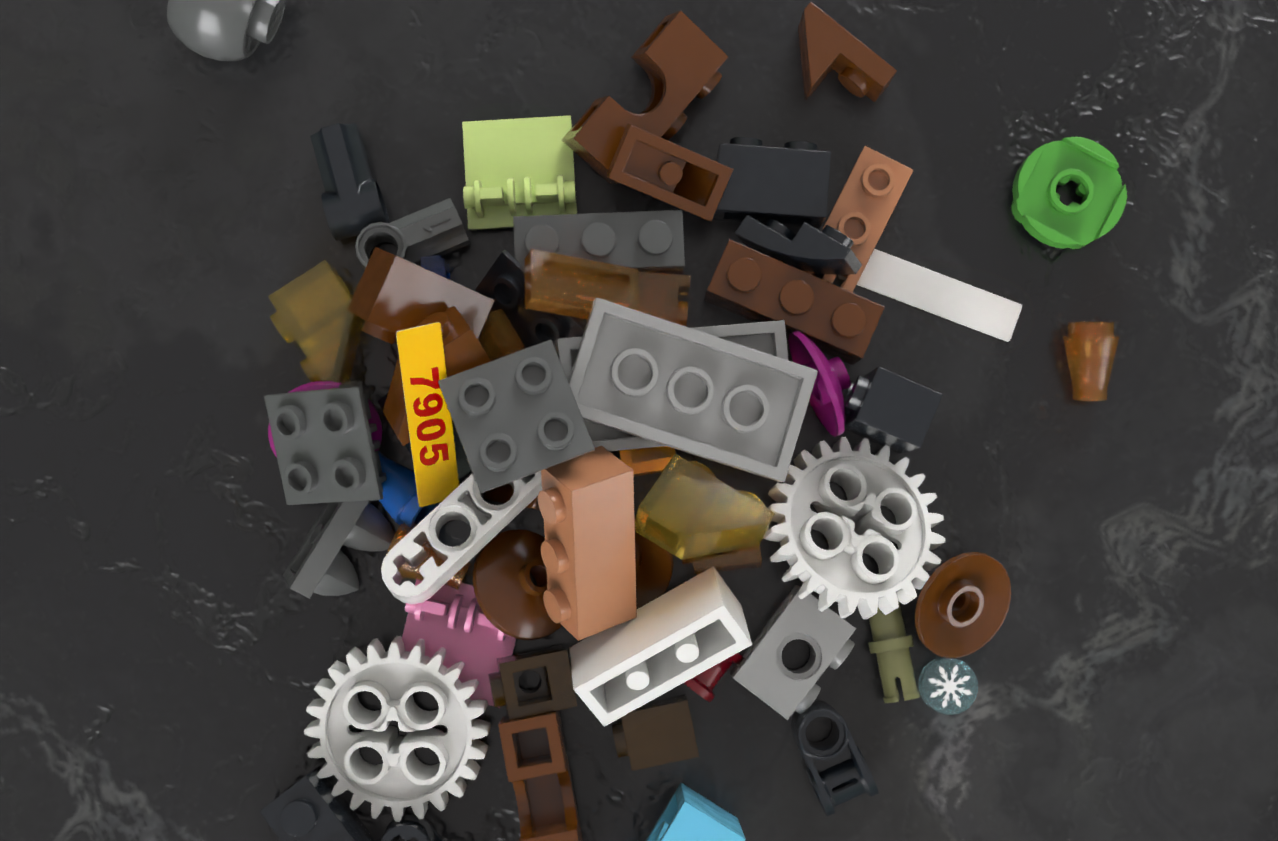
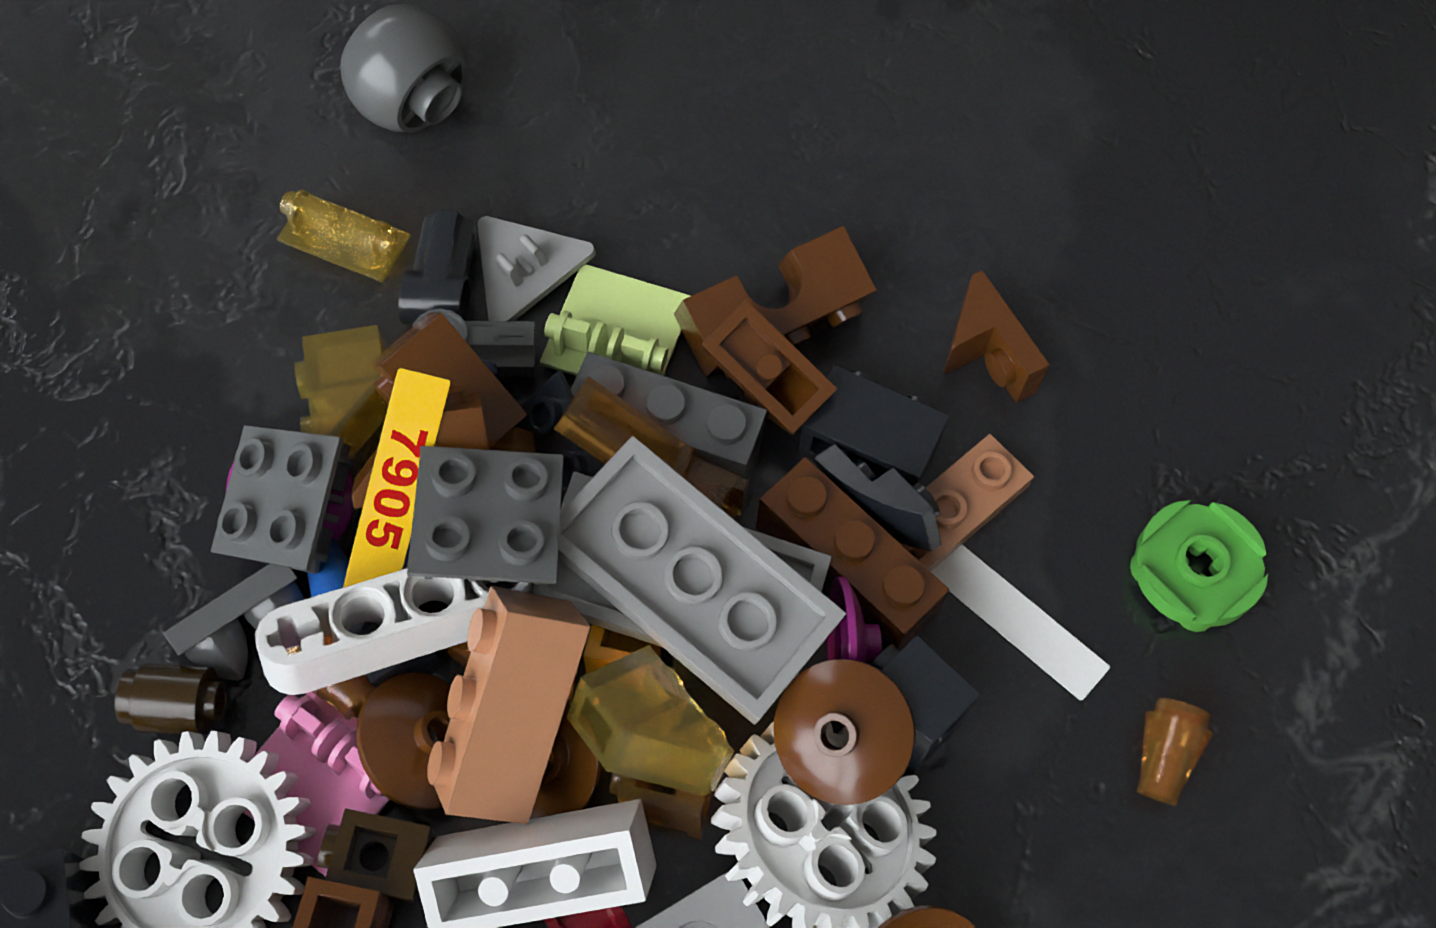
camera: 25 degrees right, 20 degrees down
(244, 178) = (340, 235): none -> clear yellow hinge
(317, 628) = (171, 698): none -> dark brown brick
(413, 143) = (525, 265): none -> light grey piece
(855, 438) = (877, 724): none -> reddish brown dish

